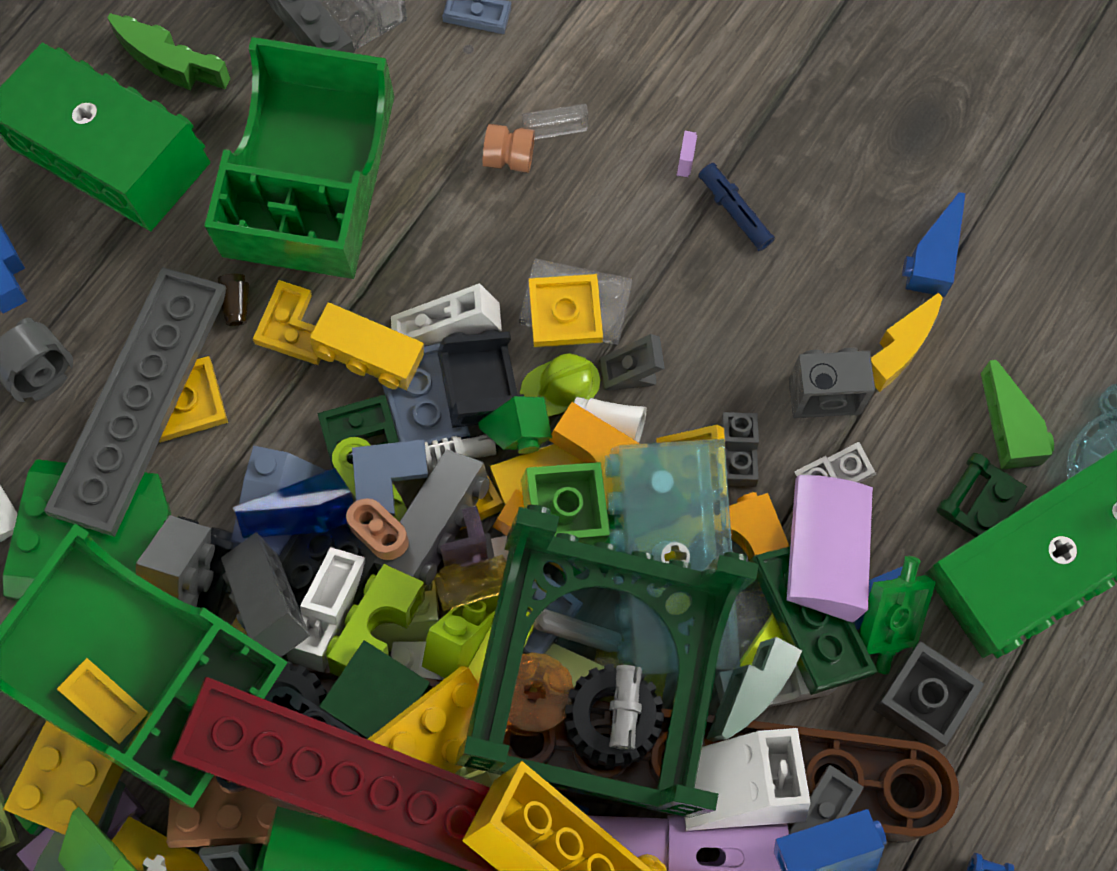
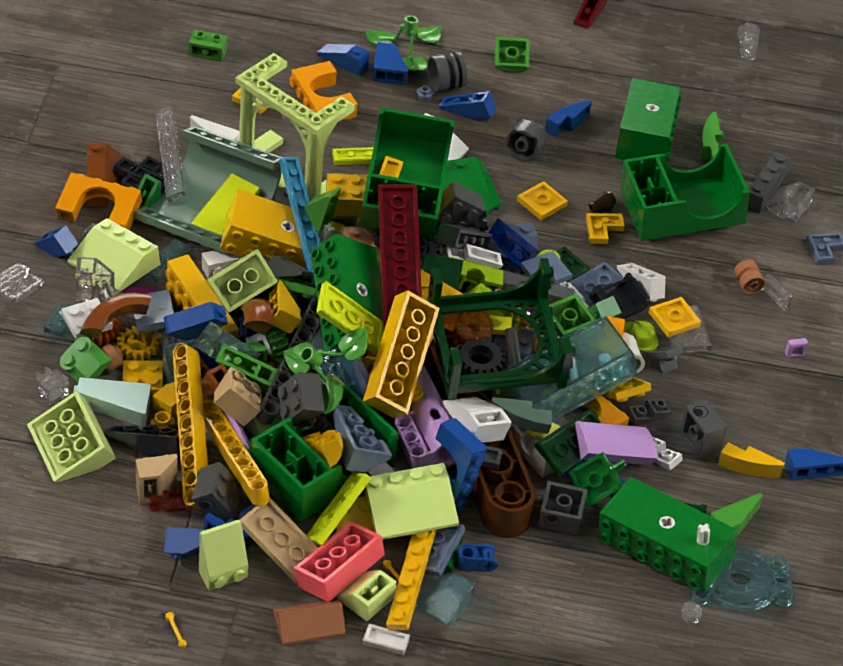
camera: 65 degrees right, 25 degrees down
(136, 402) = (531, 179): dark grey plate -> none
(366, 347) = (607, 250): yellow brick -> none
(379, 531) = (518, 265): nougat plate -> none
(625, 707) = (484, 352): light grey pin -> none
(727, 195) = (784, 371): dark blue pin -> none

